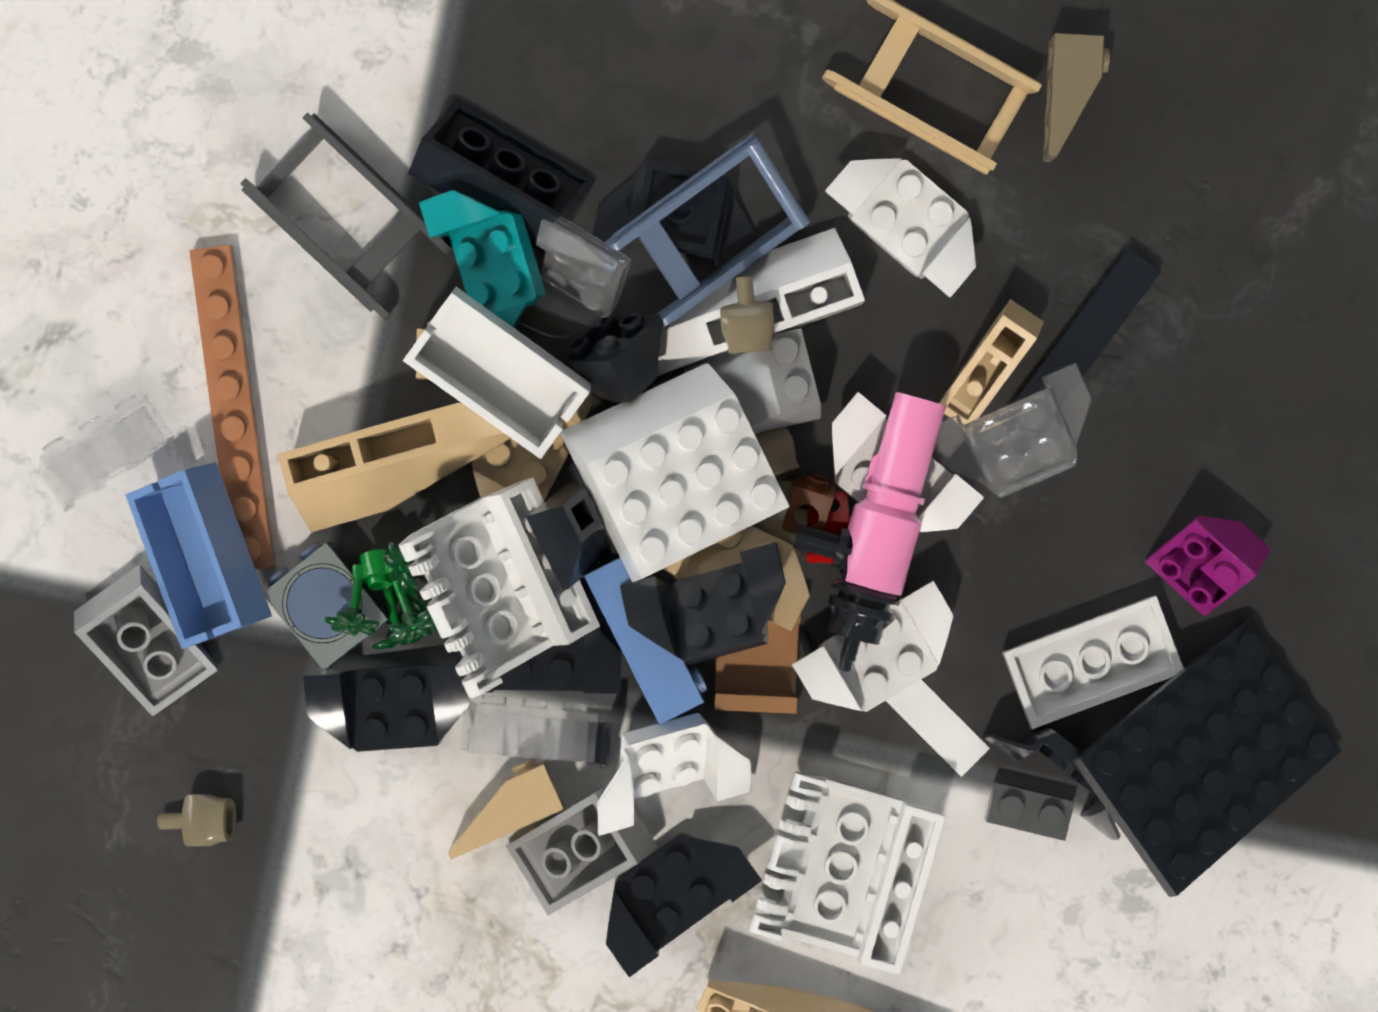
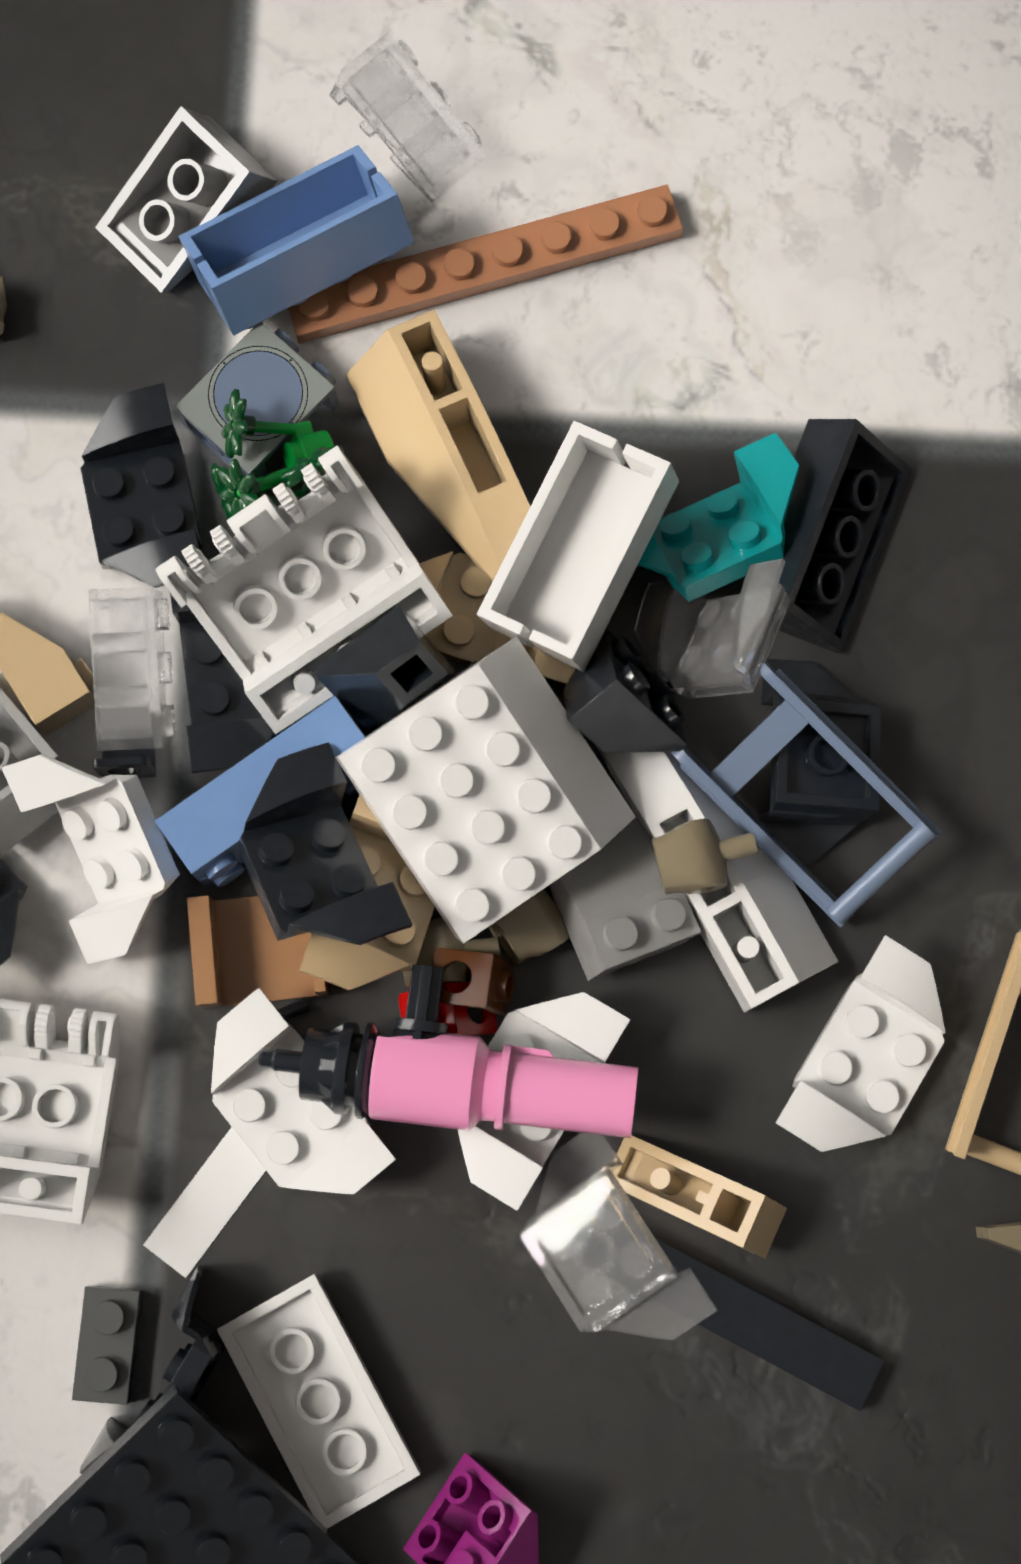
camera: 80 degrees right, 10 degrees down
(380, 252) = (706, 405): dark grey piece -> none

